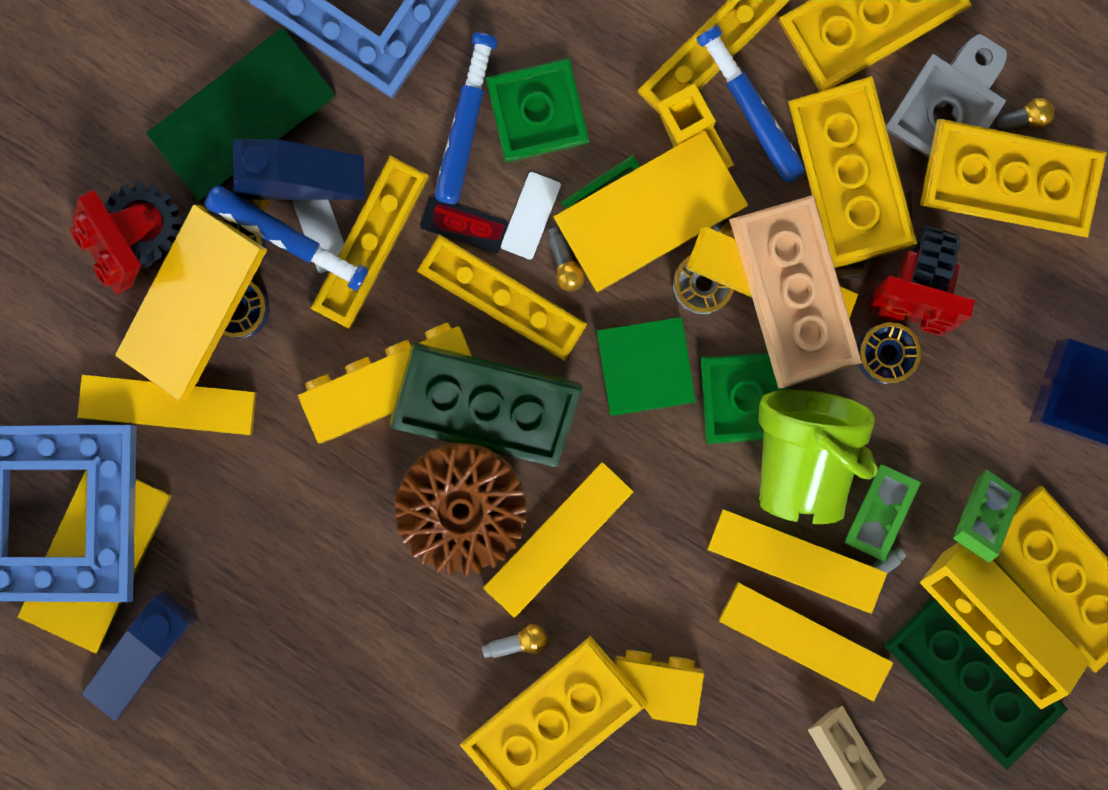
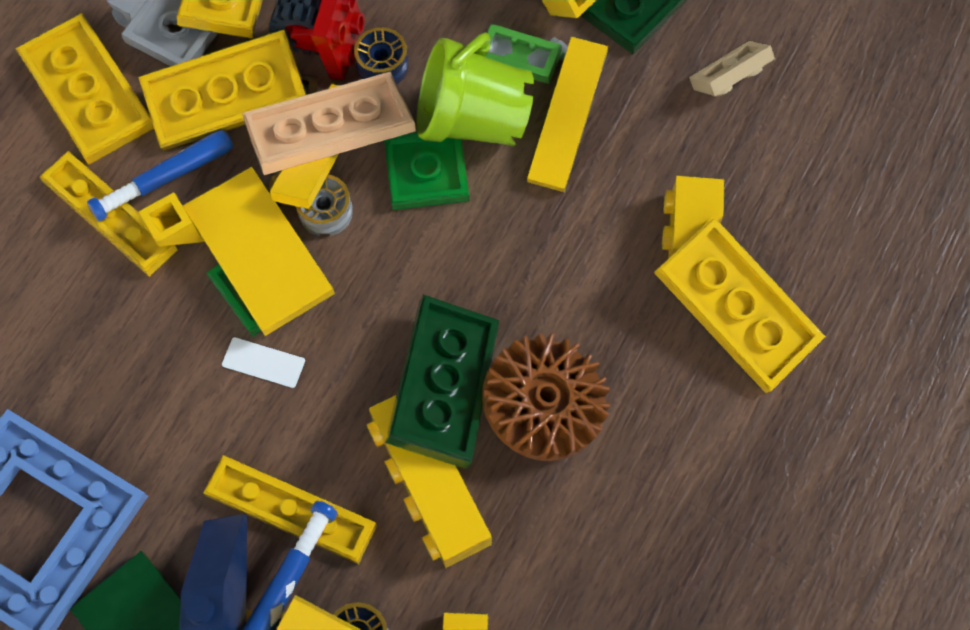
camera: 90 degrees left, 20 degrees down
(320, 225) = (266, 562): white sticker -> none
(461, 135) = (182, 426): blue piece -> none
(464, 225) = (272, 423): sticker -> none
(502, 297) = (341, 383): yellow tile -> none
(531, 640) = (663, 334): piece -> none
(537, 110) = (162, 361): green tile -> none
(558, 539) = (567, 317): yellow tile -> none
(569, 274) = (318, 320): piece -> none
(646, 366) = (402, 251): green tile -> none
(805, 641) = (636, 110): yellow tile -> none

